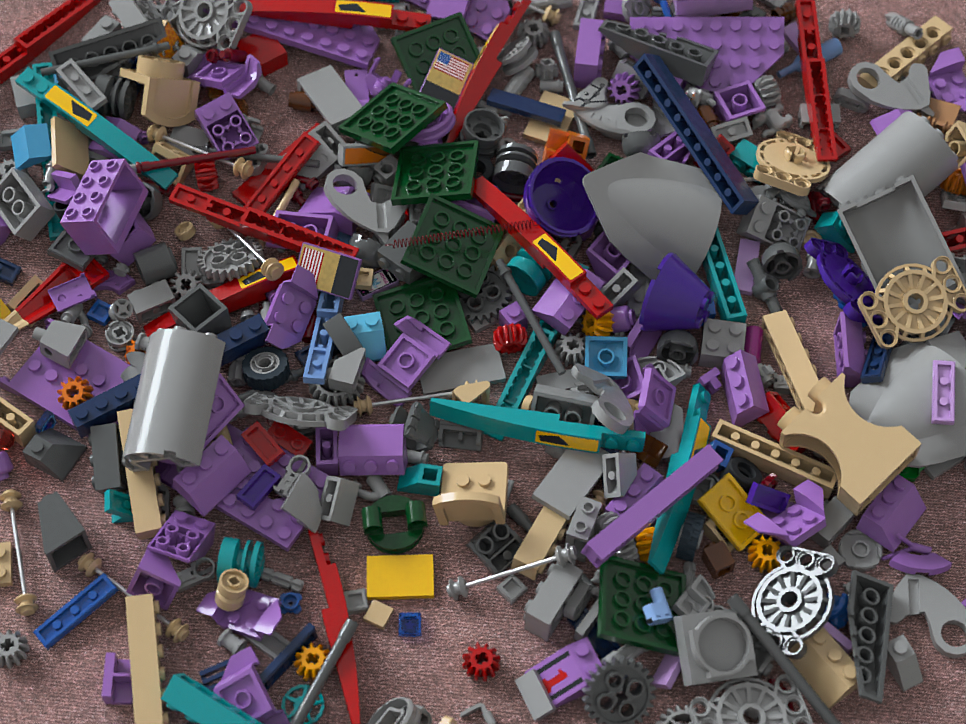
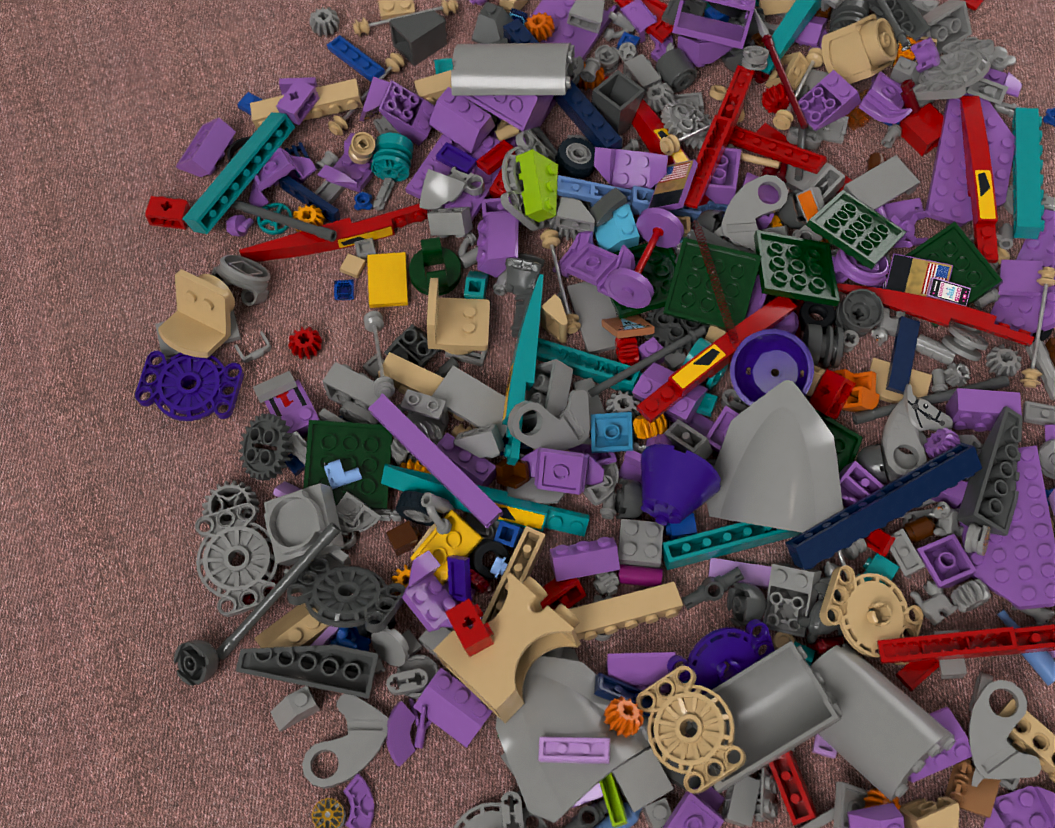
camera: 90 degrees right, 5 degrees up
(148, 652) = (298, 101): none -> medium lavender brick
(164, 180) = (755, 58): none -> light grey wheel
(181, 33) = (926, 54): none -> medium lavender piece
(319, 394) = (539, 184): none -> lime wedge
(376, 289) = (629, 286): none -> medium lavender piece
(467, 57) = (948, 291): none -> tile
(486, 332) = (628, 326): none -> nougat tile
(700, 510) = (437, 504): none -> light grey plant
(710, 381) = (596, 532): medium lavender tile -> none
(722, 72) = (977, 539): none -> light grey wheel
(755, 461) = (499, 566): none -> light blue plate
(837, 473) = (472, 639): none -> red brick
(845, 560) = (391, 646): none -> light grey tile
(865, 556) = (407, 676): none -> light grey beam
(906, 354) = (623, 717): none -> orange gear

